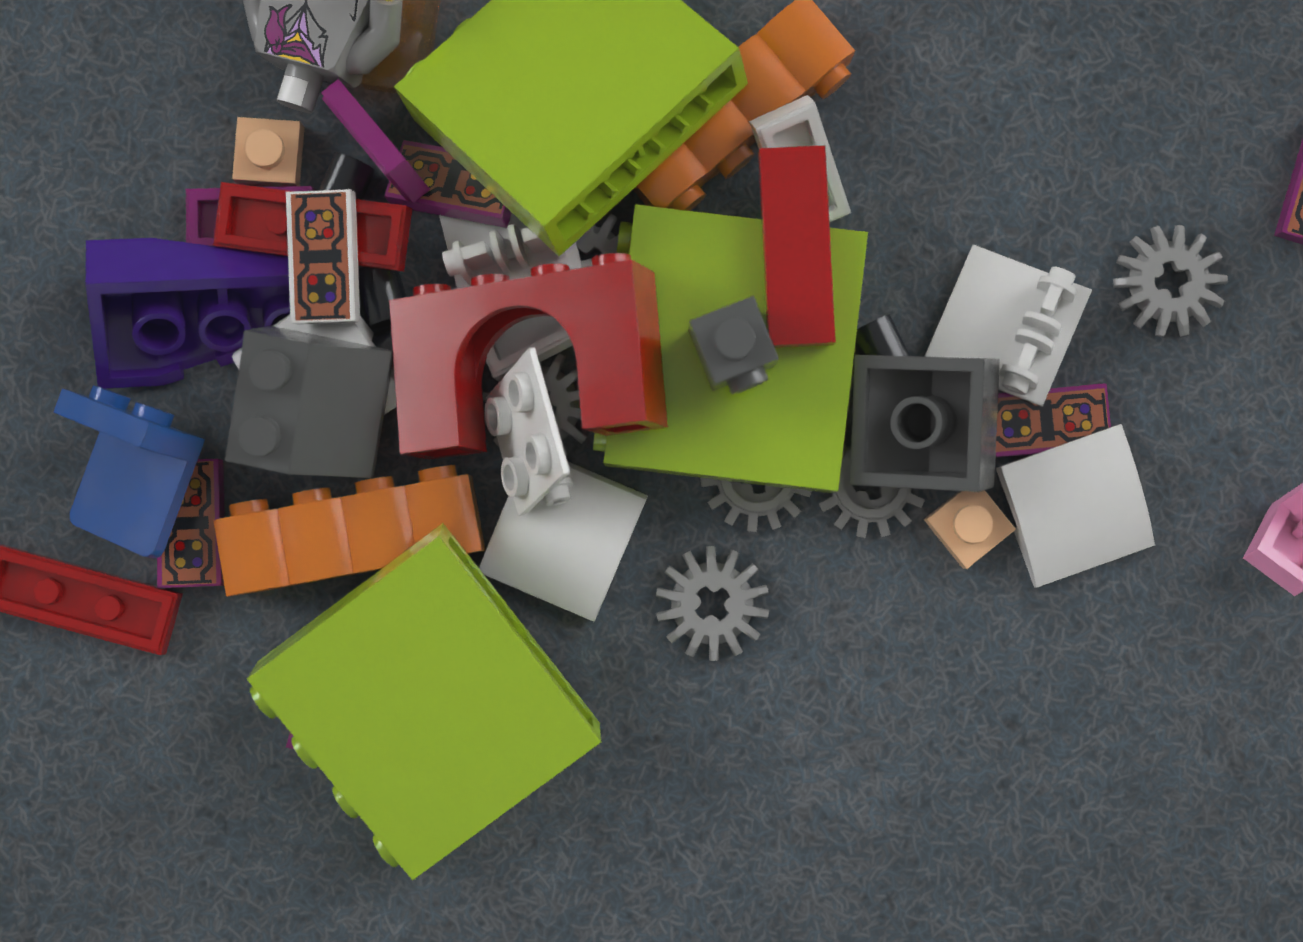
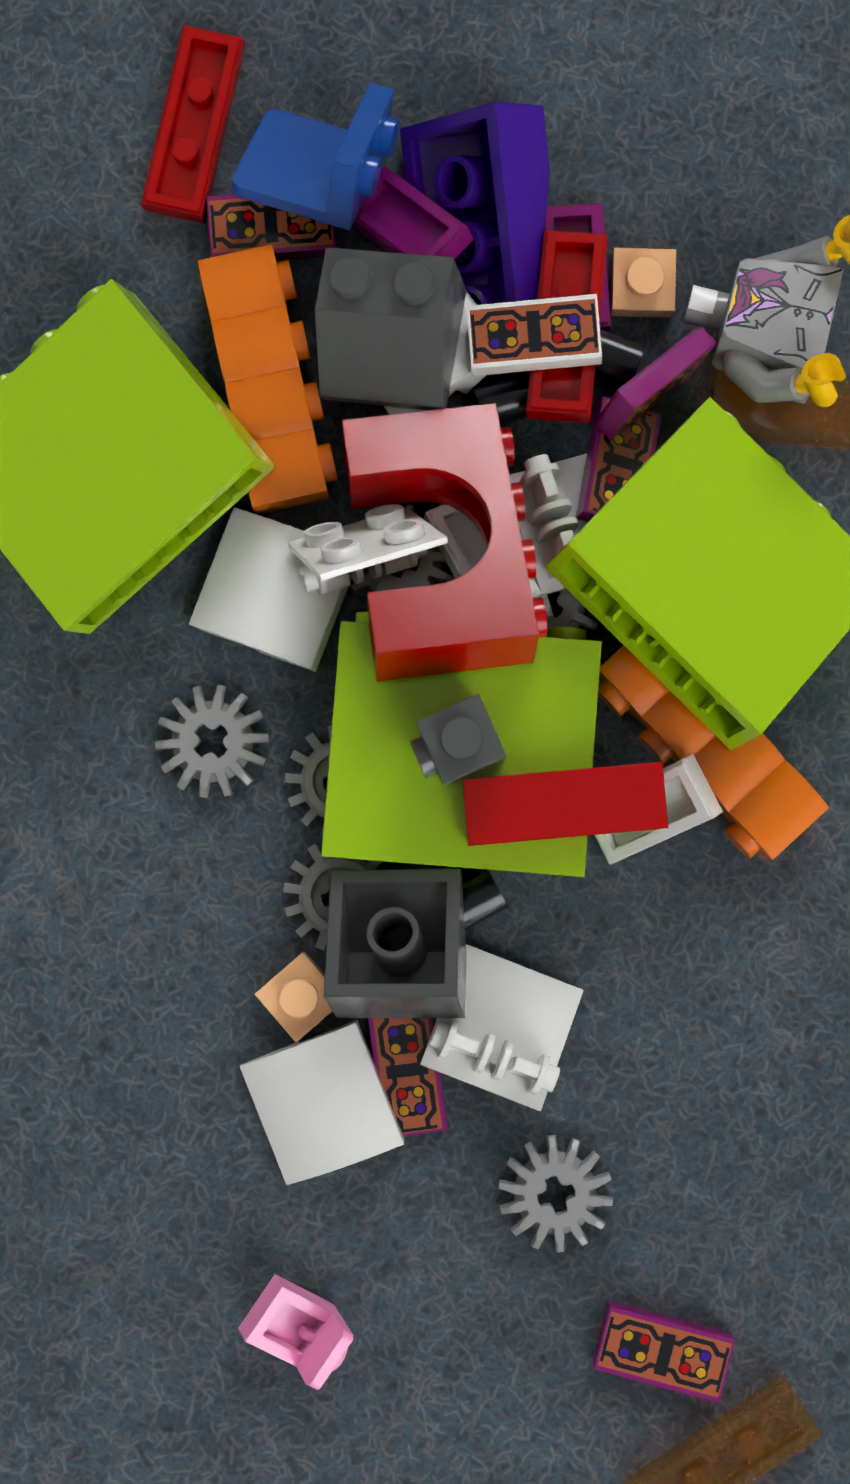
camera: 90 degrees right, 0 degrees up
(199, 378) = (408, 221): none -> magenta tile

